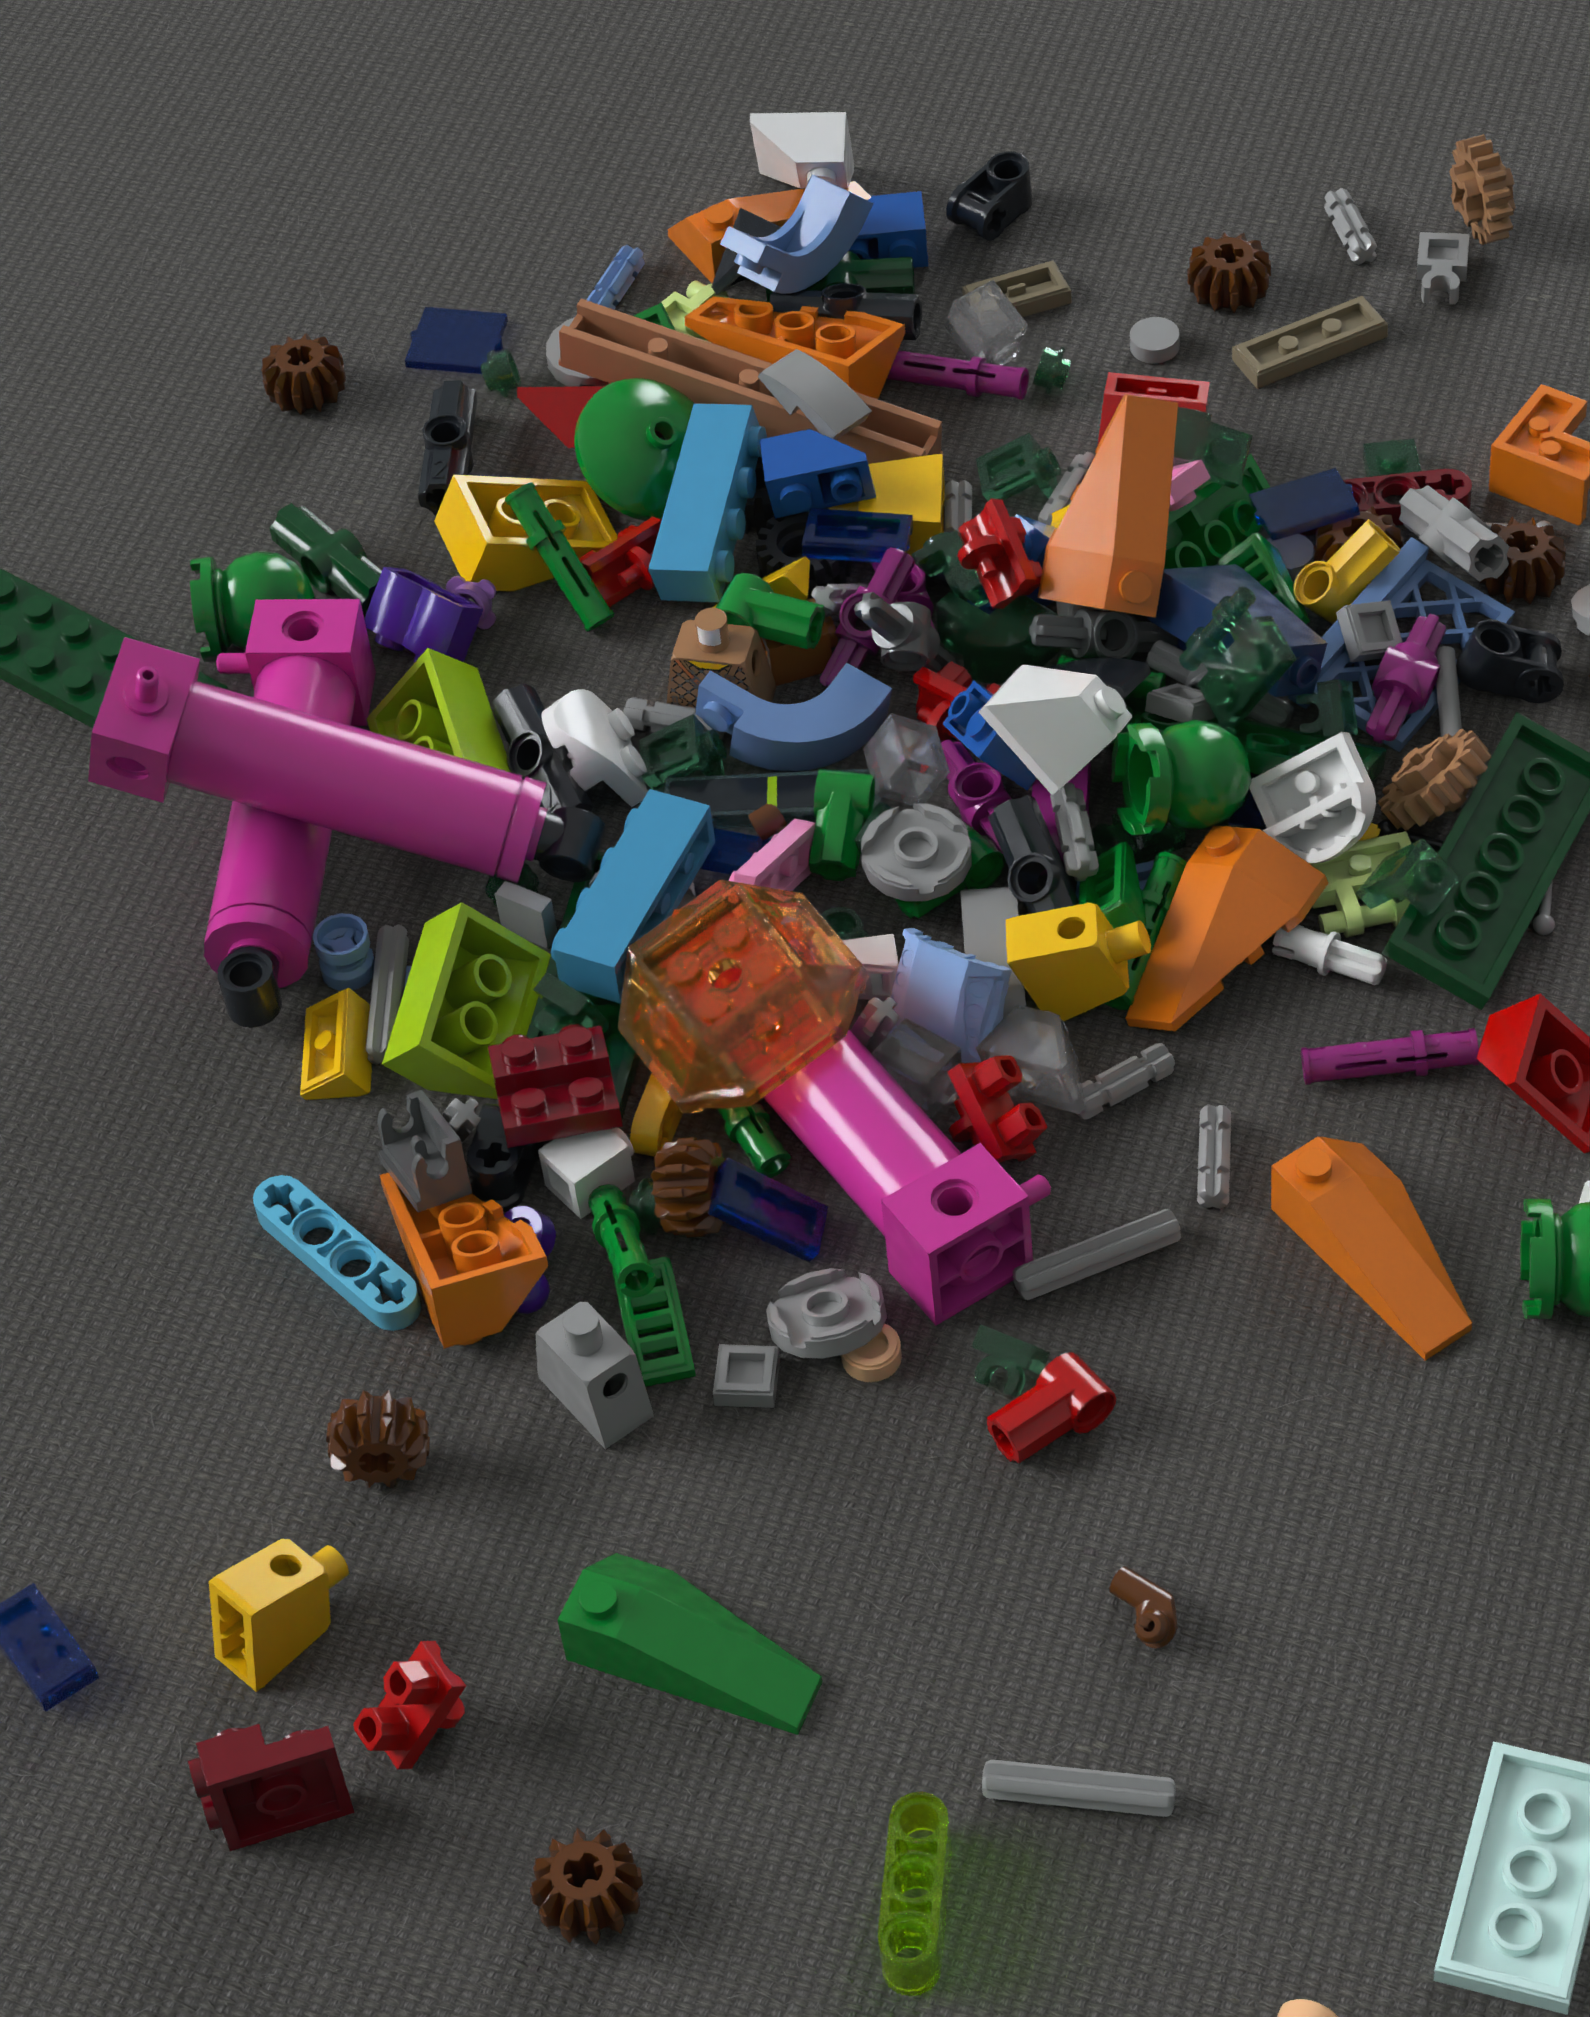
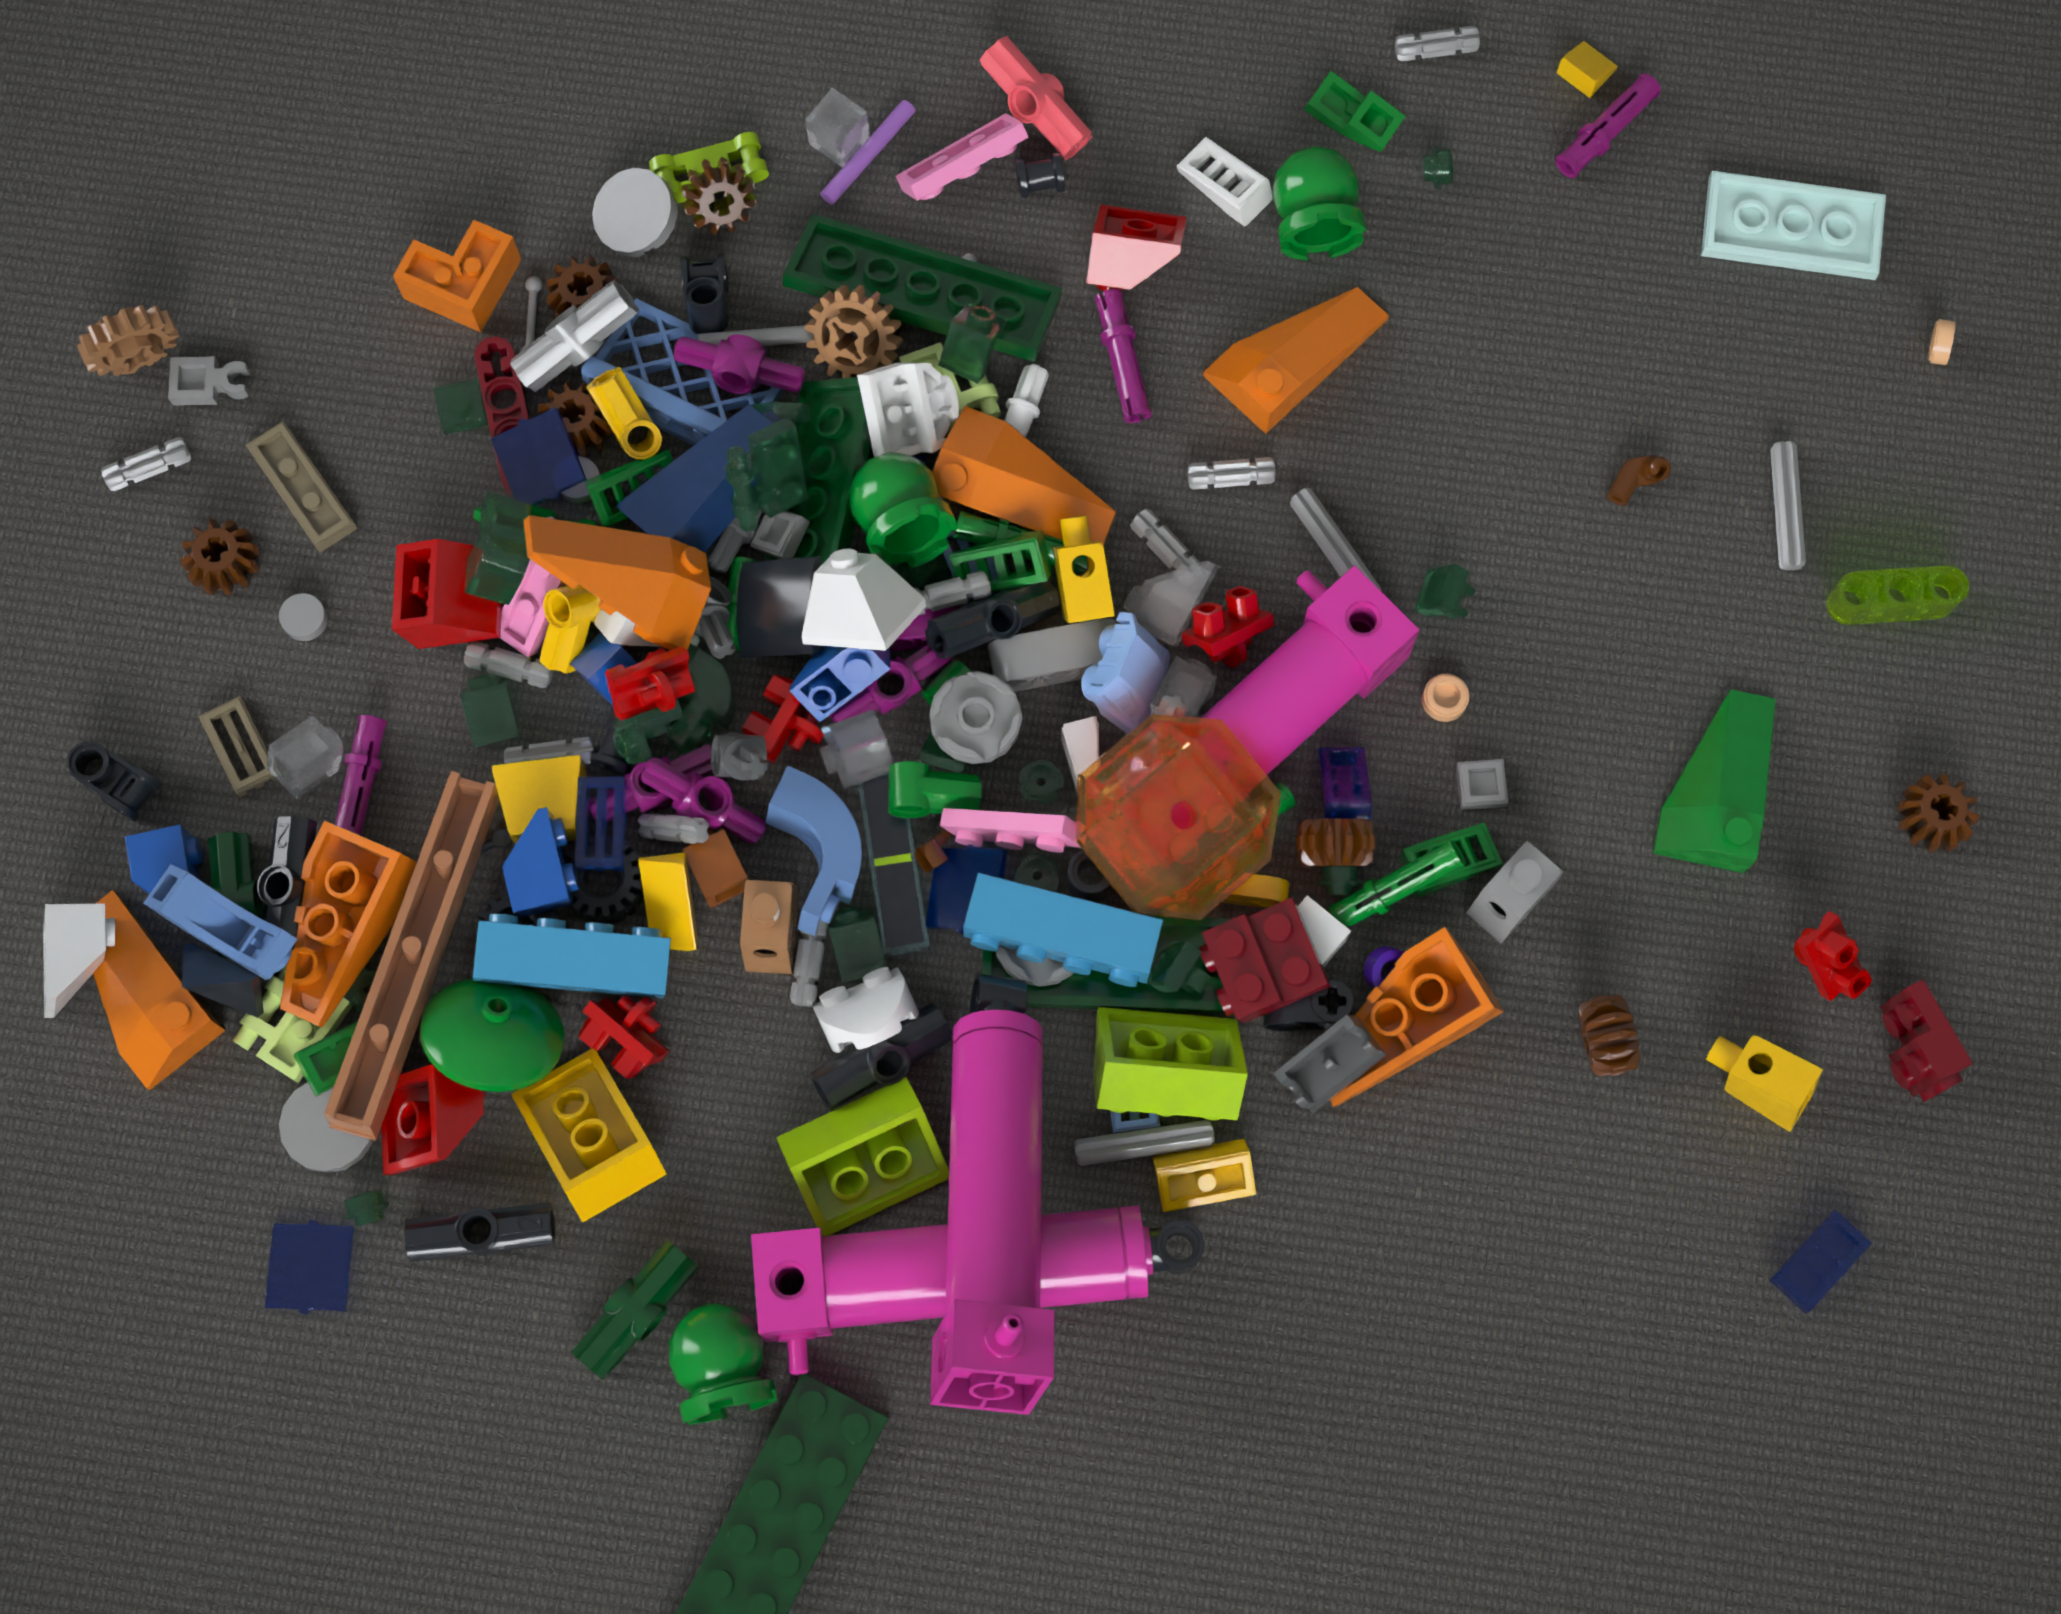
camera: 105 degrees left, 25 degrees up
(303, 374) = (378, 1382): reddish brown gear -> none
(332, 1255) = (1411, 1120): medium azure beam -> none
(344, 951) = (1114, 1177): medium blue wheel -> none
(420, 615) = (717, 1200): dark purple brick -> none
(462, 1117) = (1302, 1033): light grey axle -> none
(481, 594) = (685, 1167): medium lavender plate -> none
(526, 913) = (1054, 1035): light grey tile -> none
(548, 539) = (611, 1108): green pin -> none
(617, 277) = (230, 1124): medium blue axle -> none
(774, 616) = (720, 888): green piece -> none
(819, 393) = (442, 876): light grey slope -> none
(826, 1314) = (1427, 729): light grey tile -> none
(1052, 369) = (350, 698): clear green plate -> none
(1064, 1399) = (1478, 549): red piece -> none
(1368, 629) = (693, 392): light grey tile -> none

